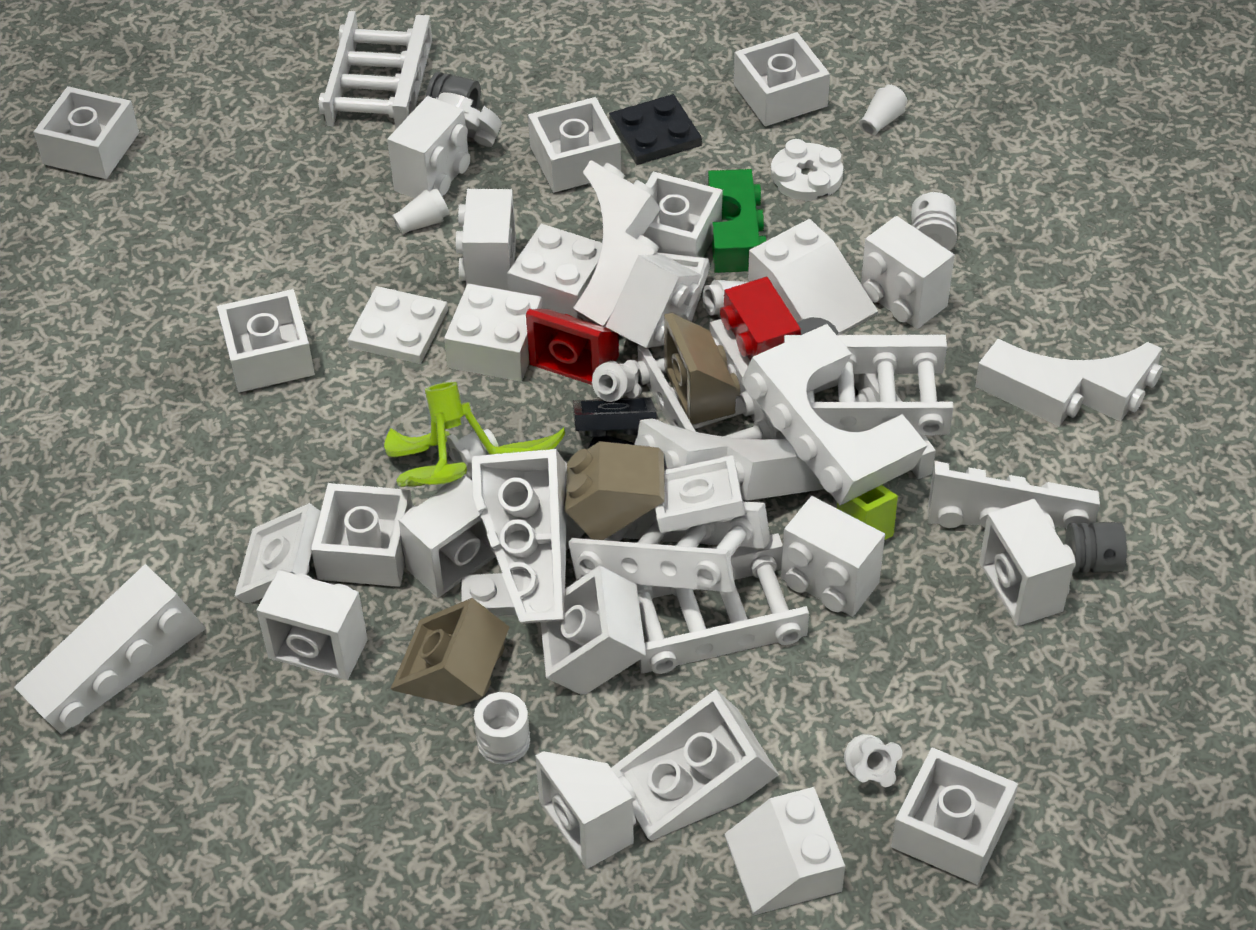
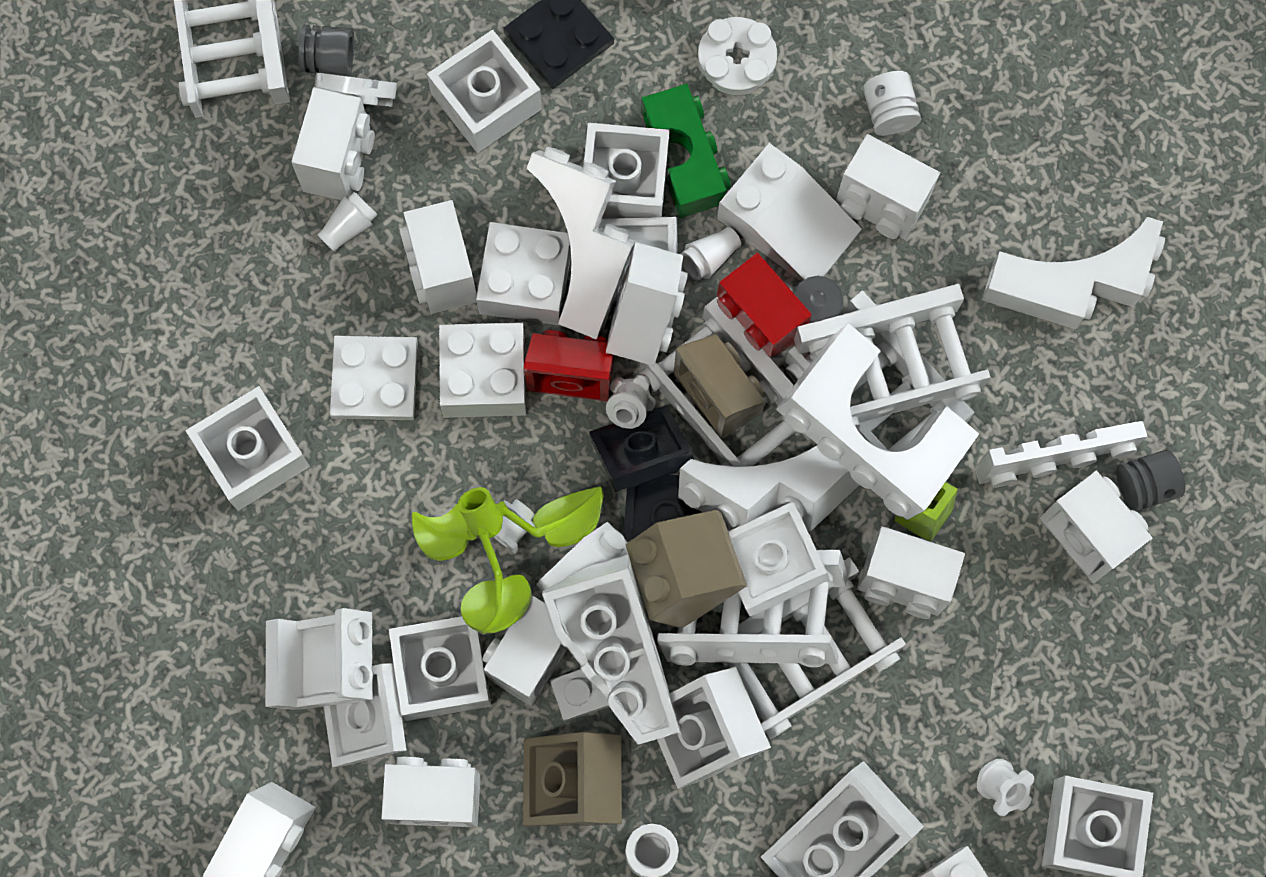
camera: 20 degrees left, 25 degrees up
(256, 506) = (319, 660): none -> white panel

